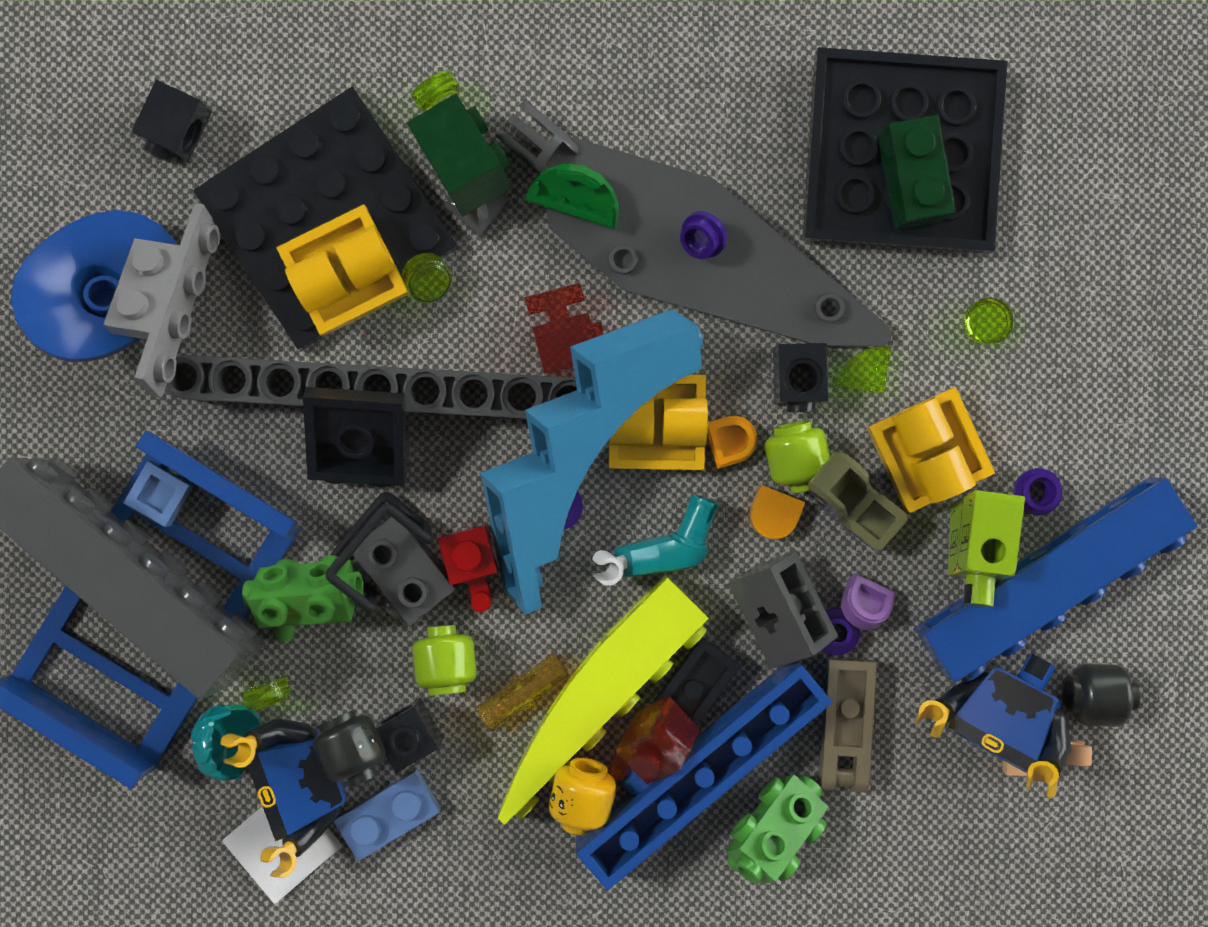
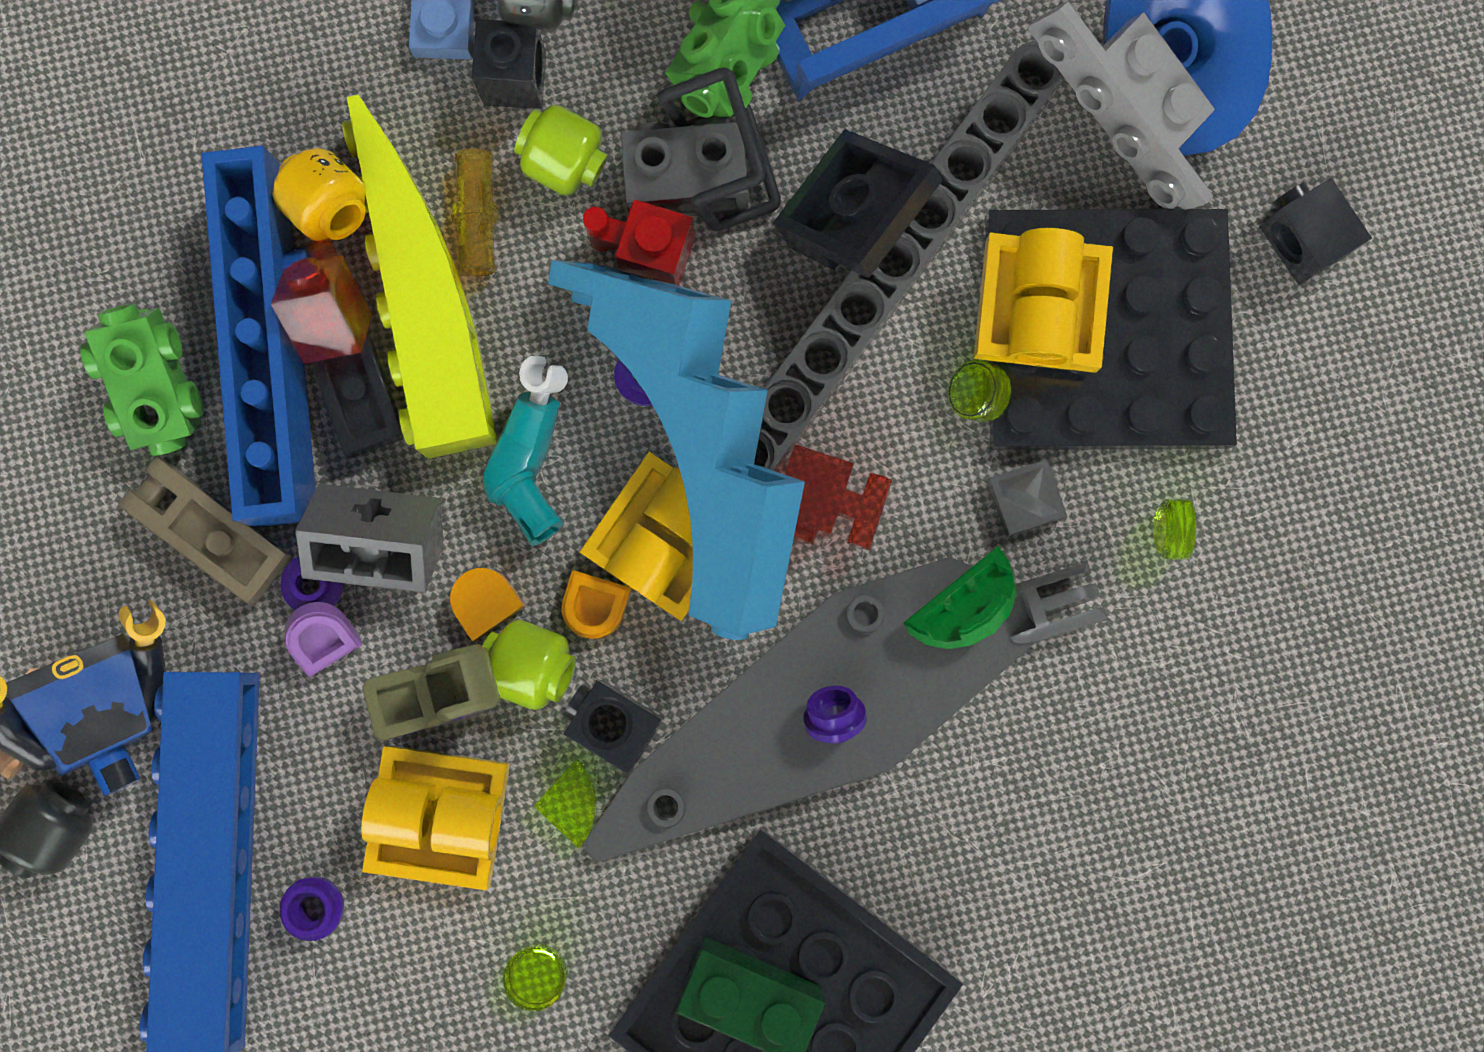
camera: 120 degrees right, 5 degrees down
(460, 154) = (1090, 507): dark green brick -> none
(986, 527) = (295, 828): lime torso -> none

